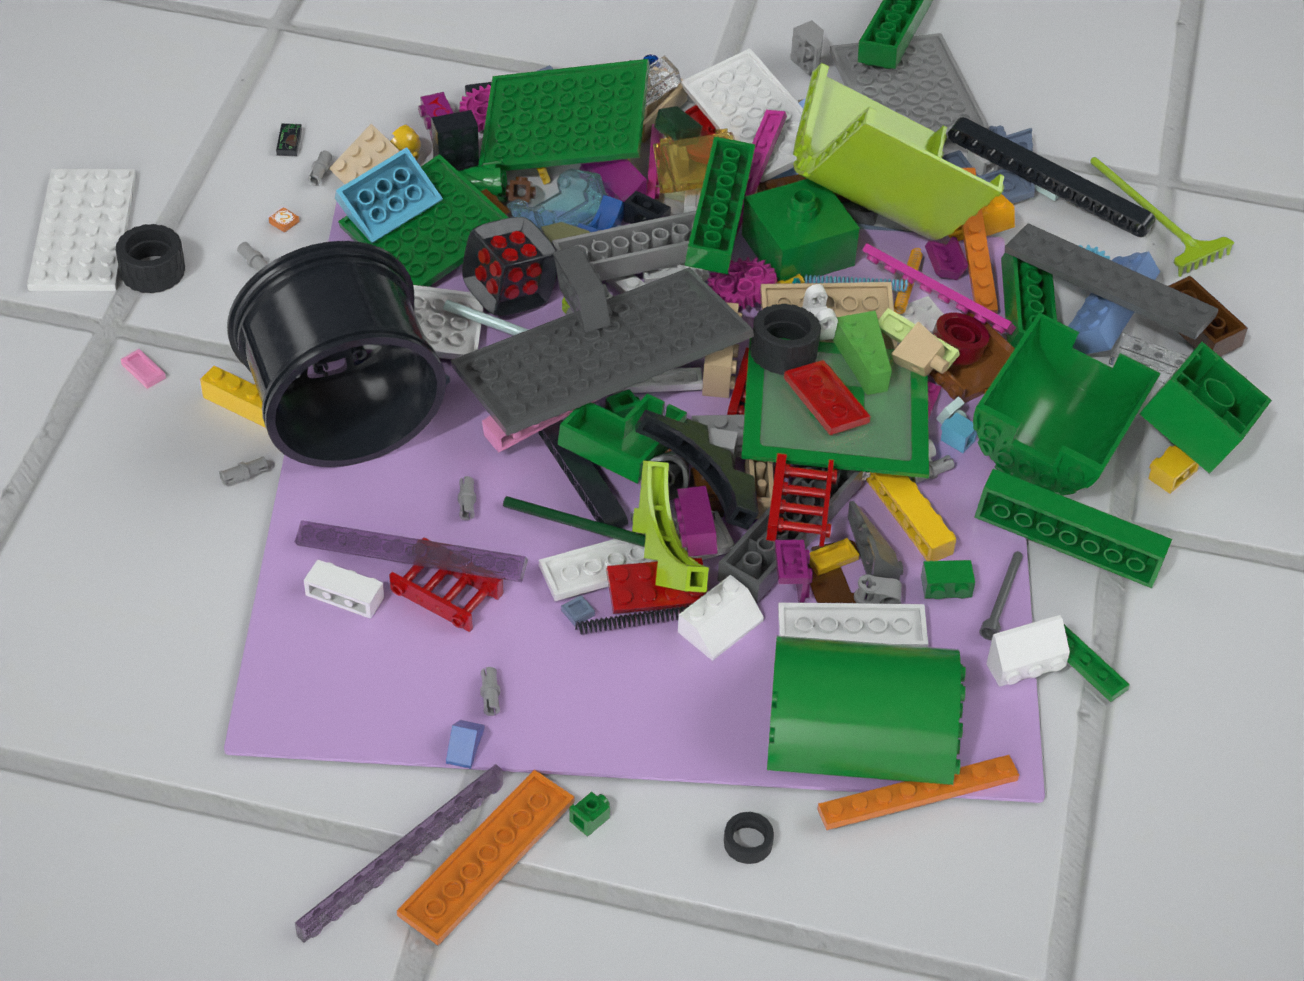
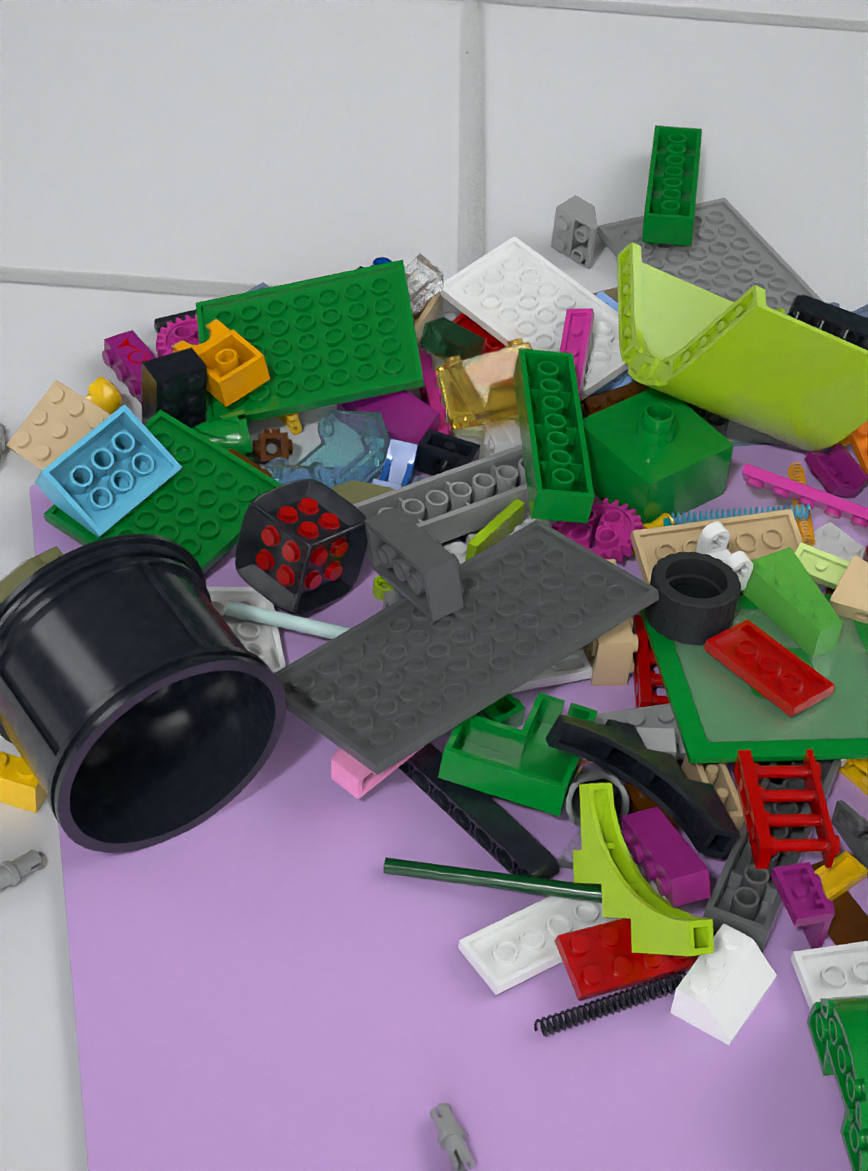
camera: 15 degrees left, 5 degrees down
(344, 588) = (205, 1022): white brick -> none
(411, 551) = (285, 954): clear purple plate -> none
(443, 607) = (353, 967): red fence -> none
(466, 498) = (333, 868): light grey pin -> none
(499, 125) = (231, 363): none -> light orange brick
(578, 610) = (530, 1003): sand blue tile -> none
(665, 268) = (496, 529): none -> lime tile

